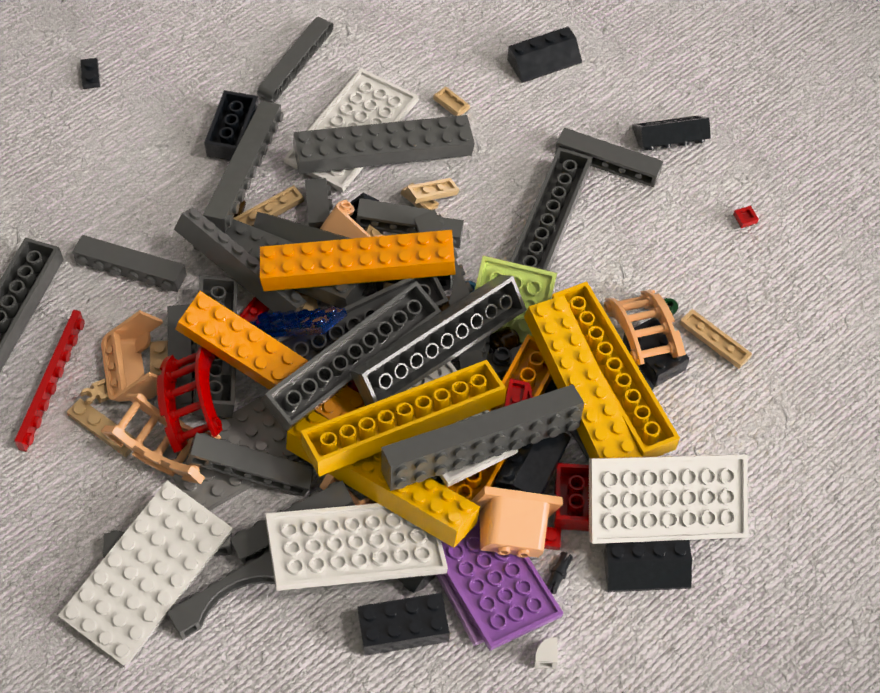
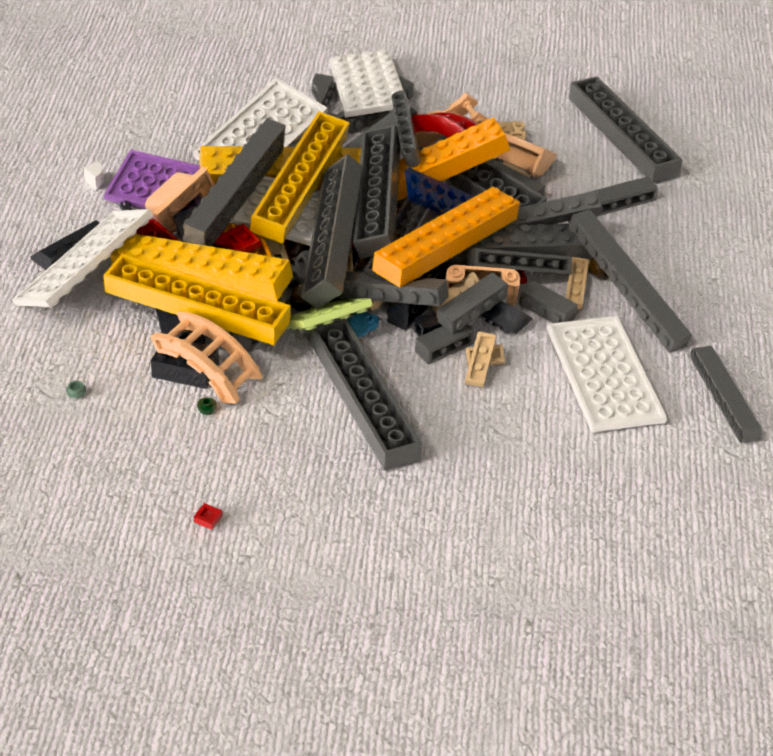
camera: 135 degrees right, 15 degrees down
(48, 383) = (555, 127): red plate -> none
(229, 124) = (689, 307): black brick -> none
(241, 410) = (406, 129): none -> dark grey beam
(383, 144) = (557, 363): dark grey brick -> none
(403, 624) = (186, 141): black brick -> none
(451, 102) = (563, 445): tan plate -> none
(544, 54) = (543, 542): black slope -> none
(612, 157) = (378, 485): dark grey brick -> none
(672, 131) = (351, 548): black slope -> none
(715, 338) = (146, 403): tan plate -> none
(760, 393) = (76, 389): none -> sand green plate

